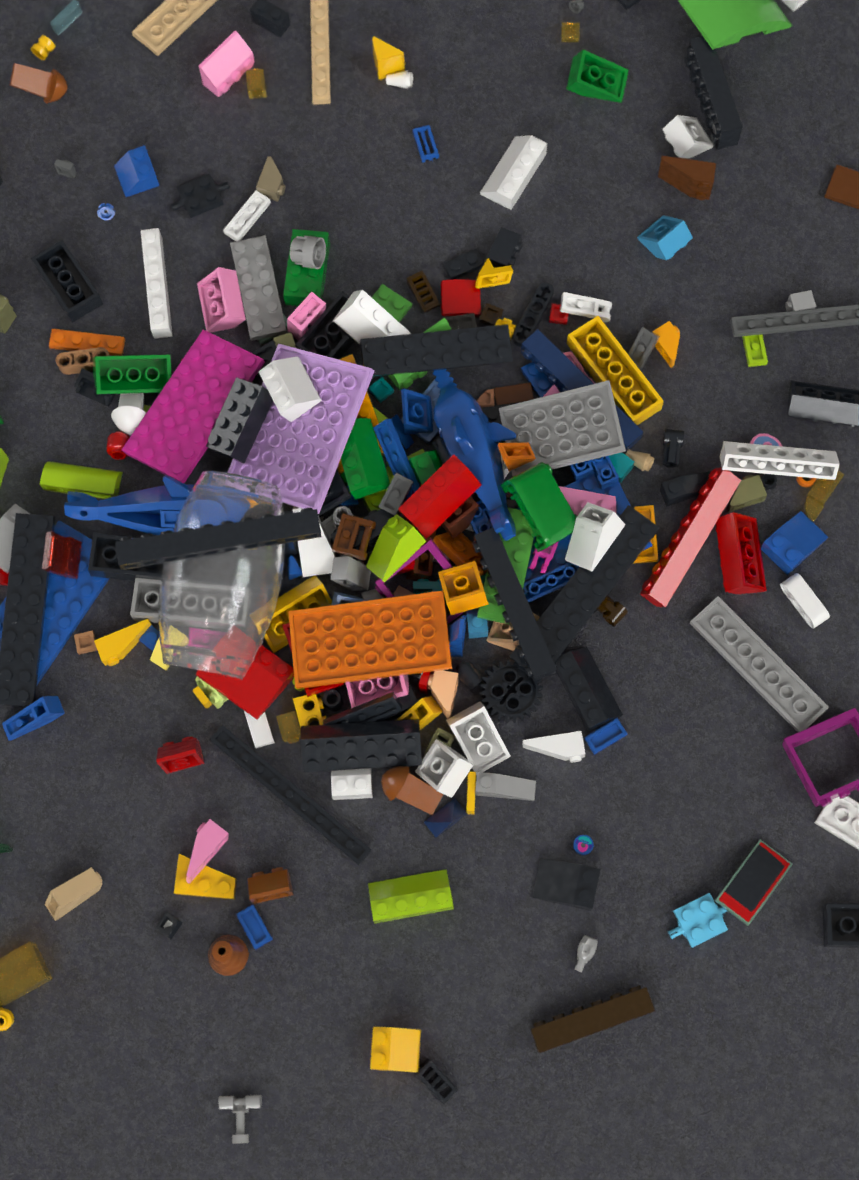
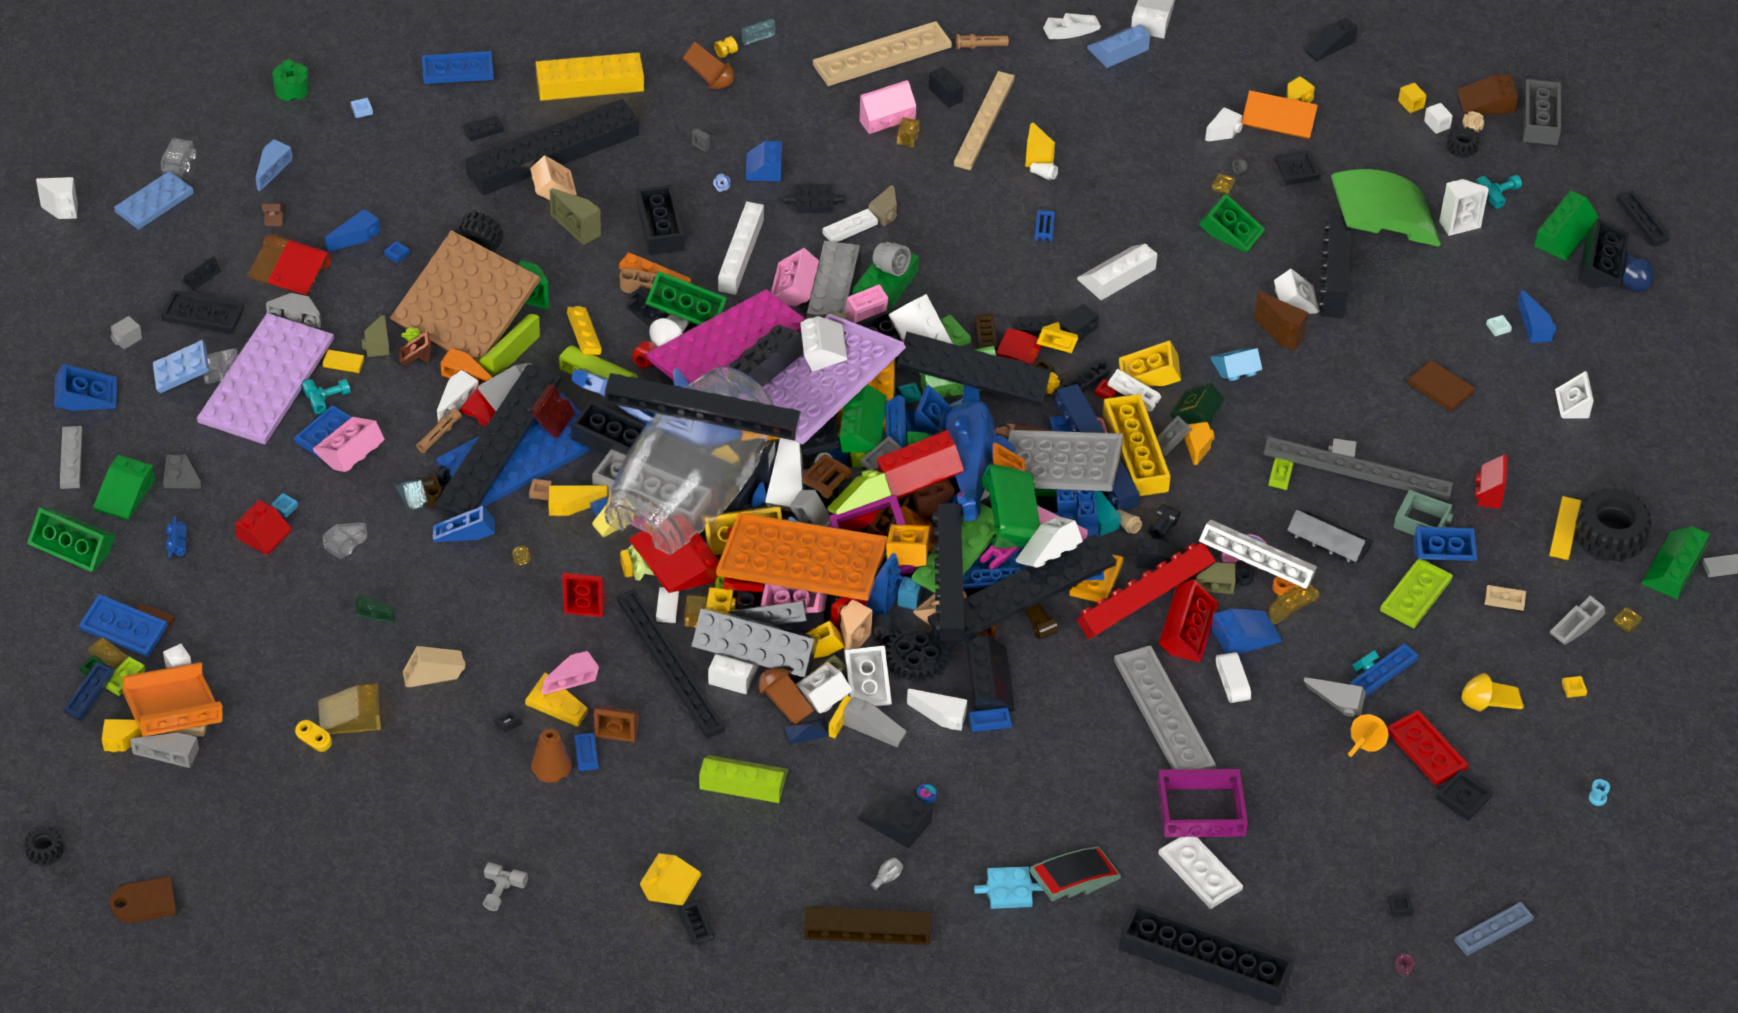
camera: 15 degrees right, 25 degrees down
(49, 441) = (584, 330): none -> yellow plate
(100, 727) = (521, 555): none -> clear yellow bush
(590, 272) = (1153, 365): none -> yellow slope
(650, 301) = (1198, 404): none -> clear green slope

